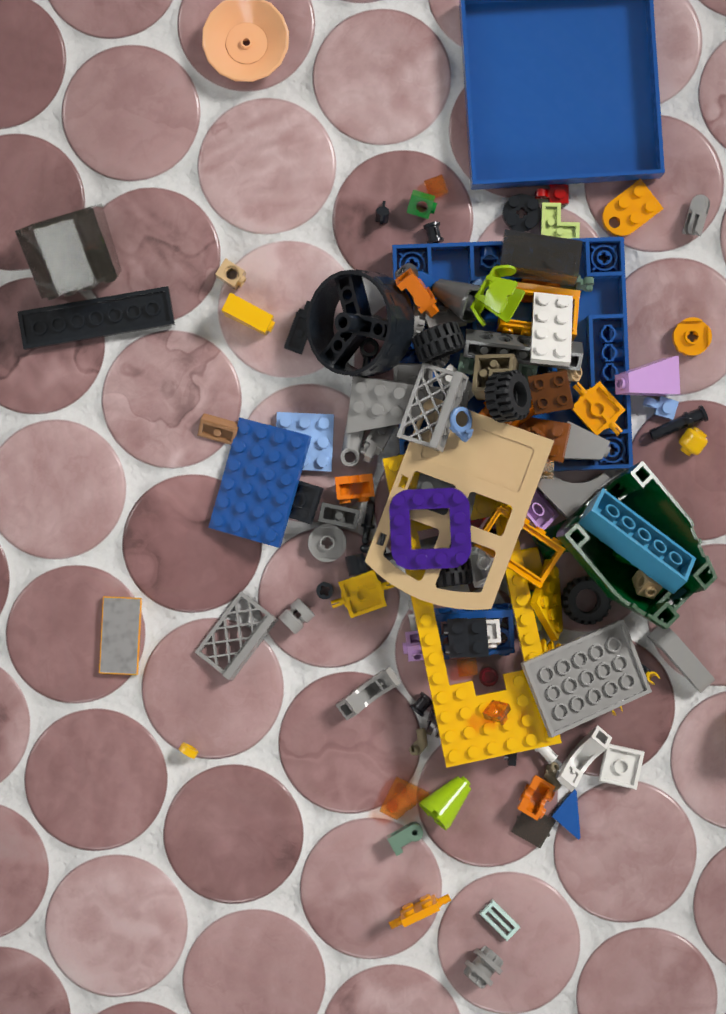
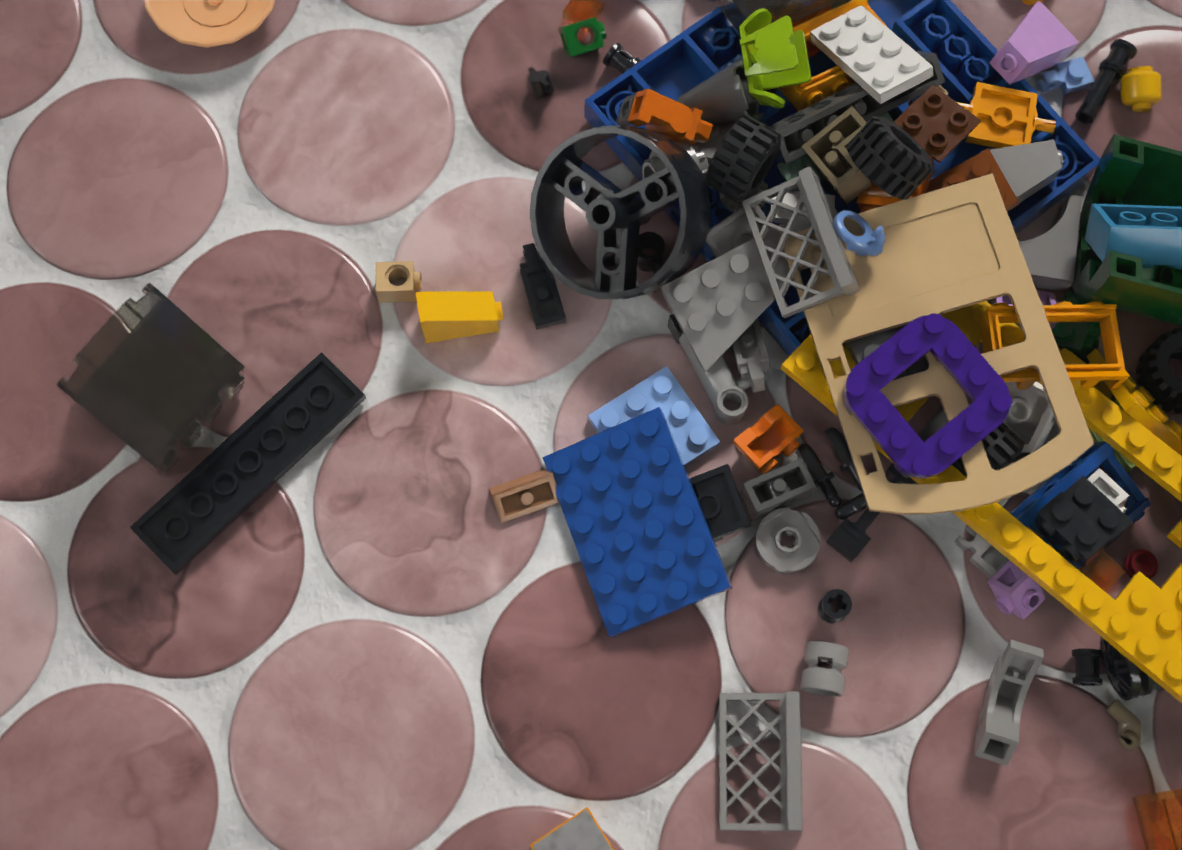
camera: 35 degrees left, 15 degrees down
(362, 594) = (888, 575): yellow plate -> none

